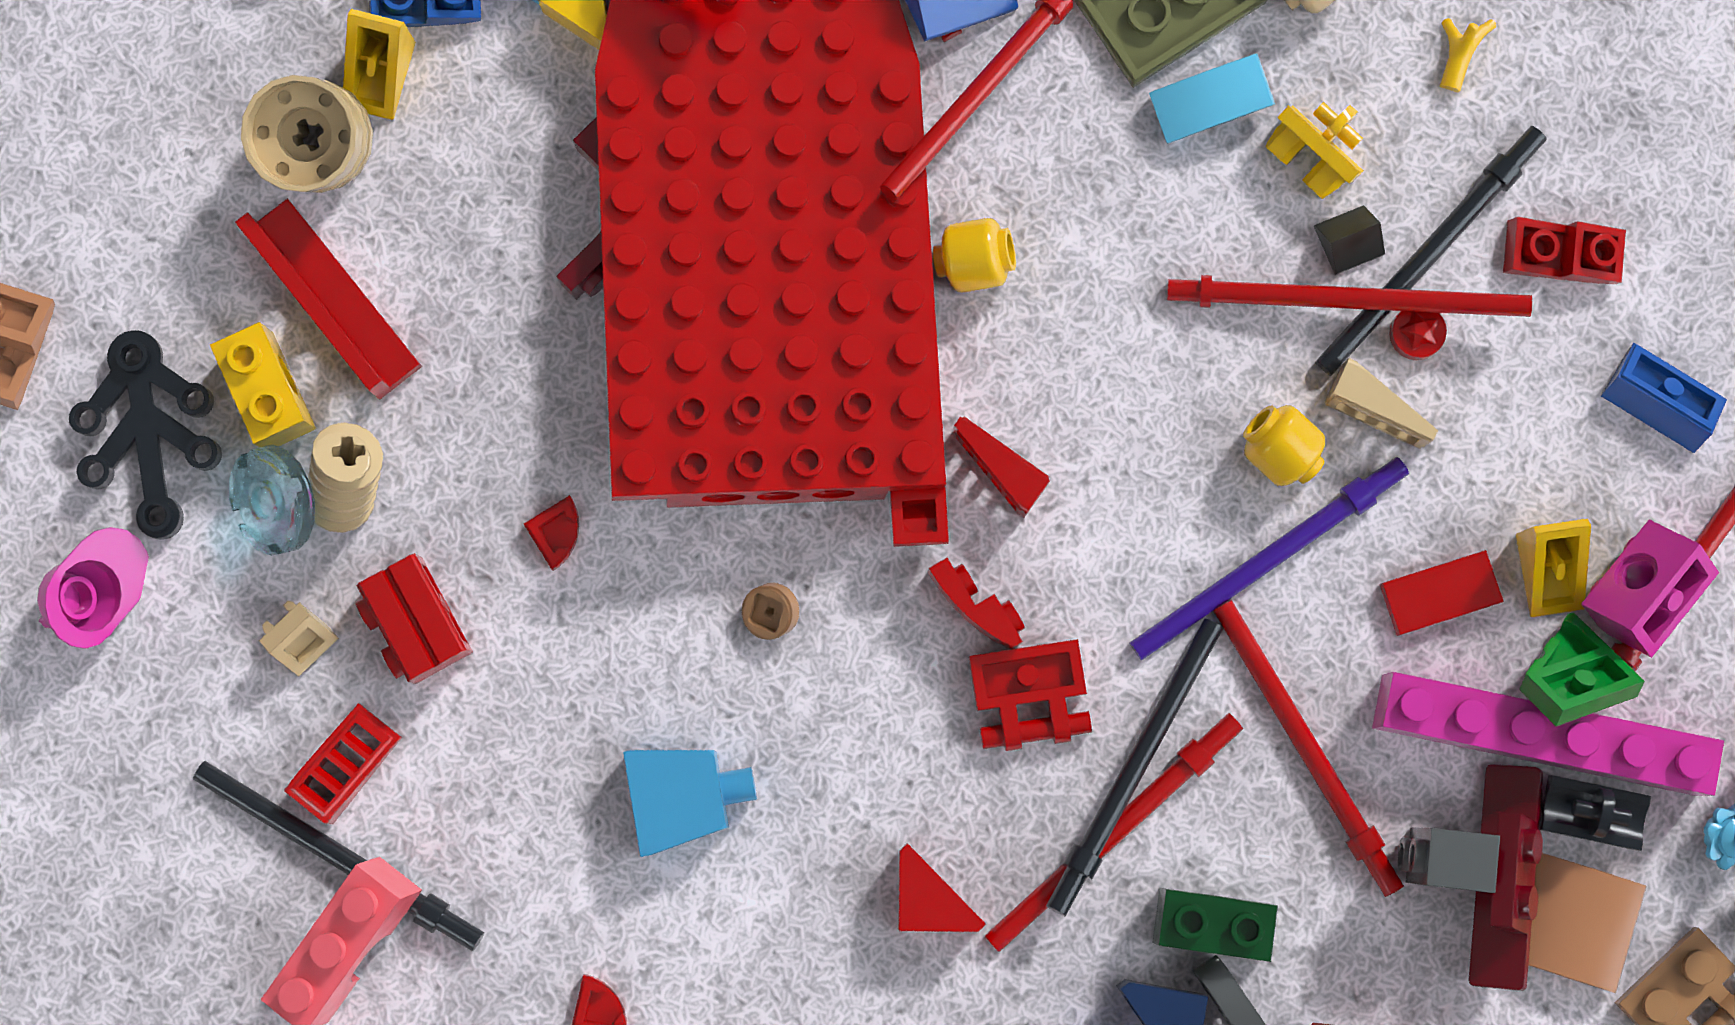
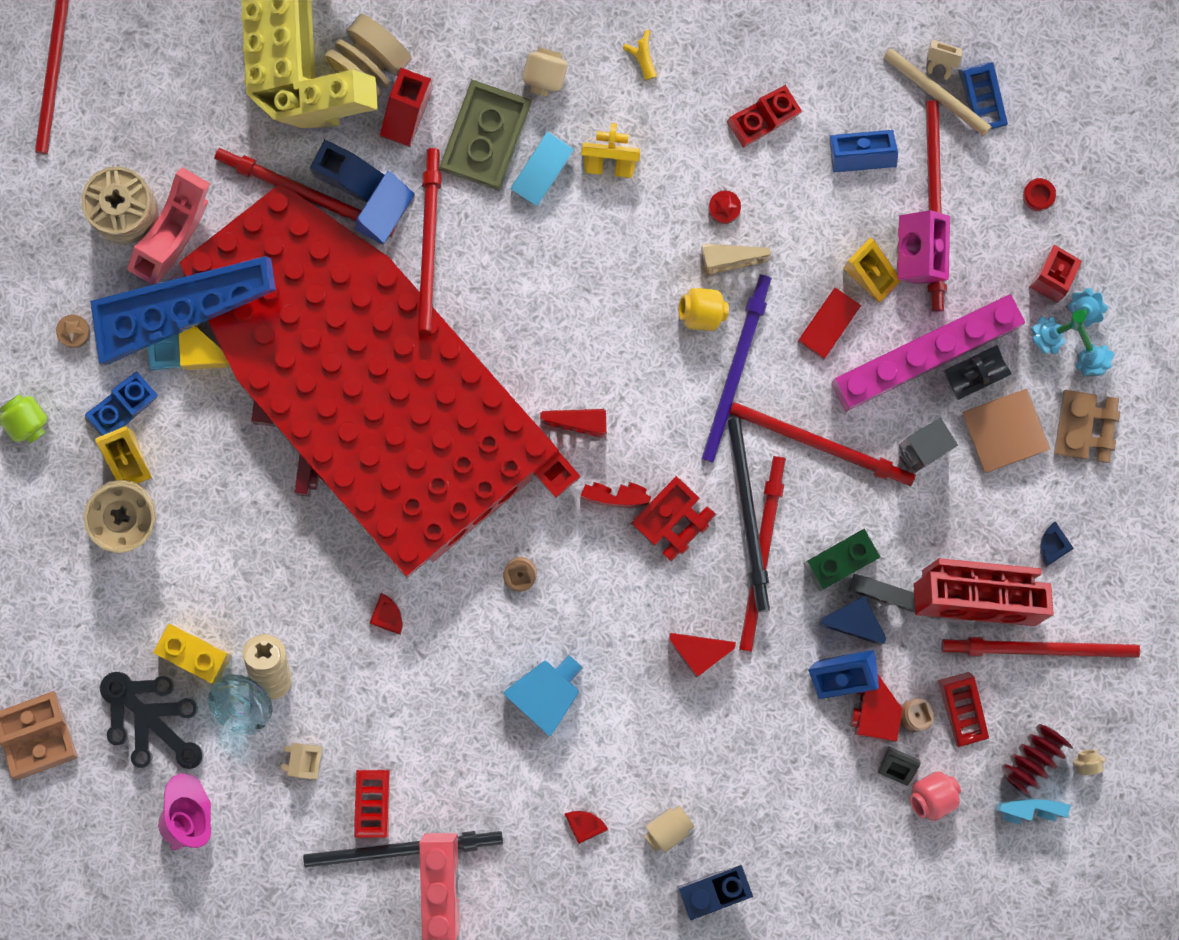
camera: 45 degrees left, 0 degrees up
(331, 298) = (190, 586): red fence -> none
(412, 619) = (353, 709): red brick -> none
(975, 255) = (487, 329): yellow head -> none
(1211, 291) = (611, 262): red bar -> none
(1351, 239) = (659, 186): pearl dark grey slope -> none
(1499, 175) = (706, 102): black bar -> none
(1505, 917) = (971, 451): dark red bracket -> none
(1578, 675) = (921, 314): green wing -> none

